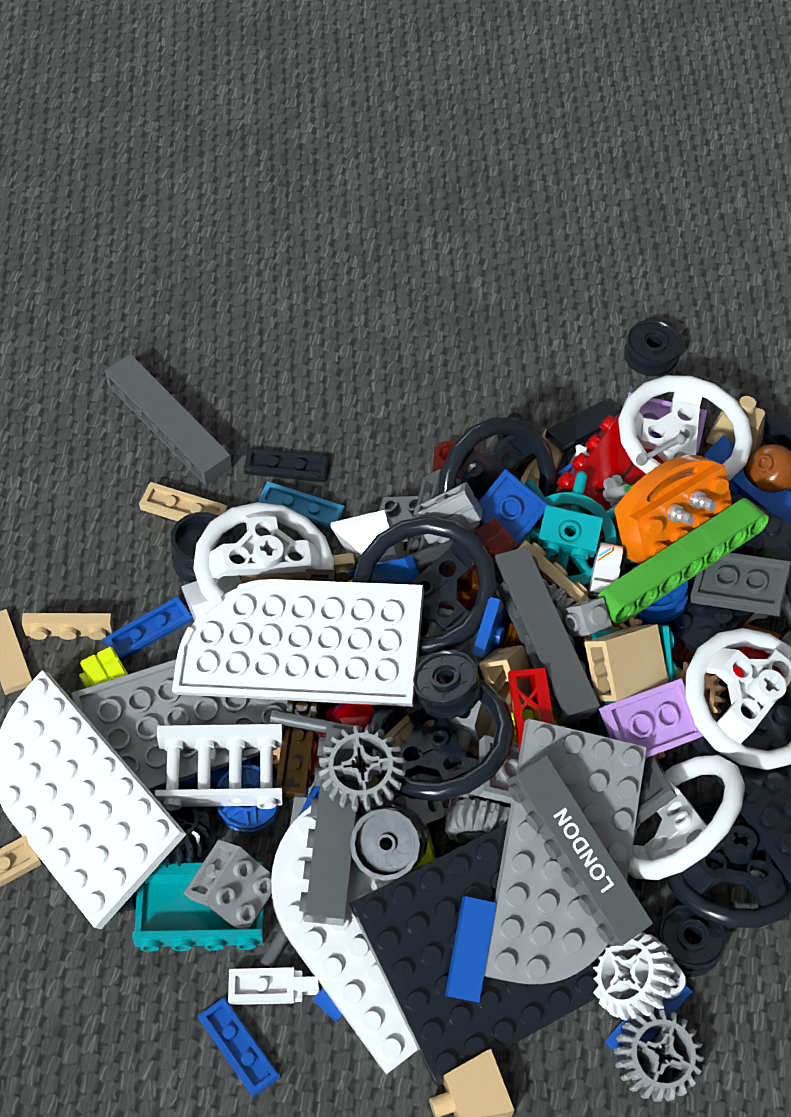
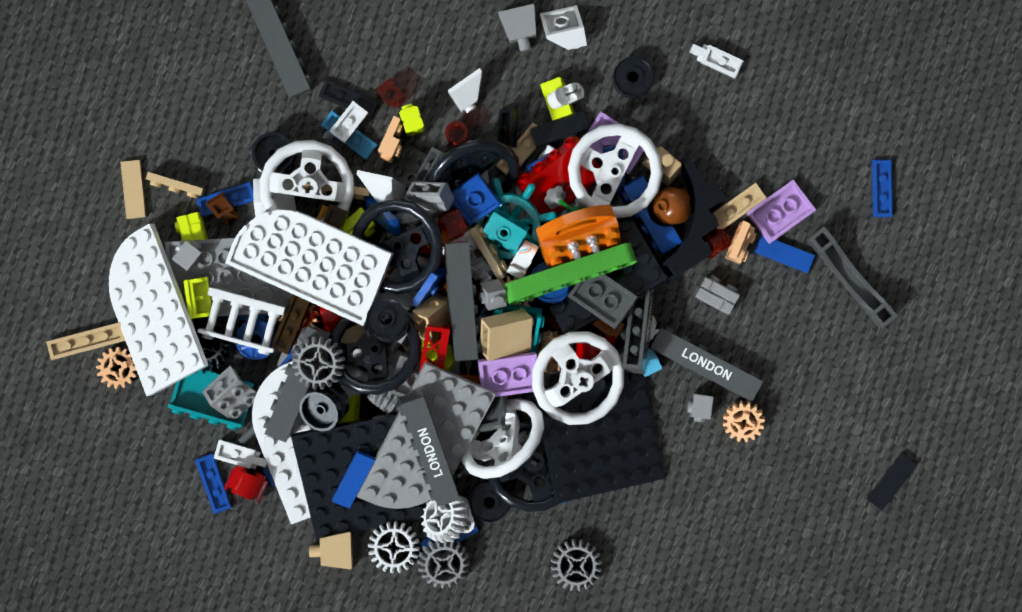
camera: 20 degrees right, 30 degrees up
(25, 913) = (114, 359): none -> light nougat gear
(111, 694) = (188, 254): none -> light grey brick
(142, 751) = (197, 297): none -> neon yellow hinge
(144, 632) = (222, 206): none -> reddish brown plate
(175, 503) = (270, 114): tan plate -> none
(295, 1022) = (246, 484): none -> red brick
(296, 483) = (349, 122): none -> white plate
(306, 722) = (305, 314): dark grey bar -> none
(339, 432) = (387, 86): none -> clear red brick
(365, 489) = (390, 145): none -> light nougat plate
(384, 457) = (411, 120): none -> neon yellow brick
(444, 408) = (466, 92): none -> white slope
(483, 326) = (519, 25): none -> light grey torso
(547, 315) = (564, 27): none -> white slope
(555, 1062) = (403, 547): none -> white gear
(566, 390) = (549, 87): none -> neon yellow hinge
(578, 378) = (565, 95): none -> white piece
(641, 458) = (573, 189): light grey hinge -> none
(748, 305) = (717, 59): none -> white hinge

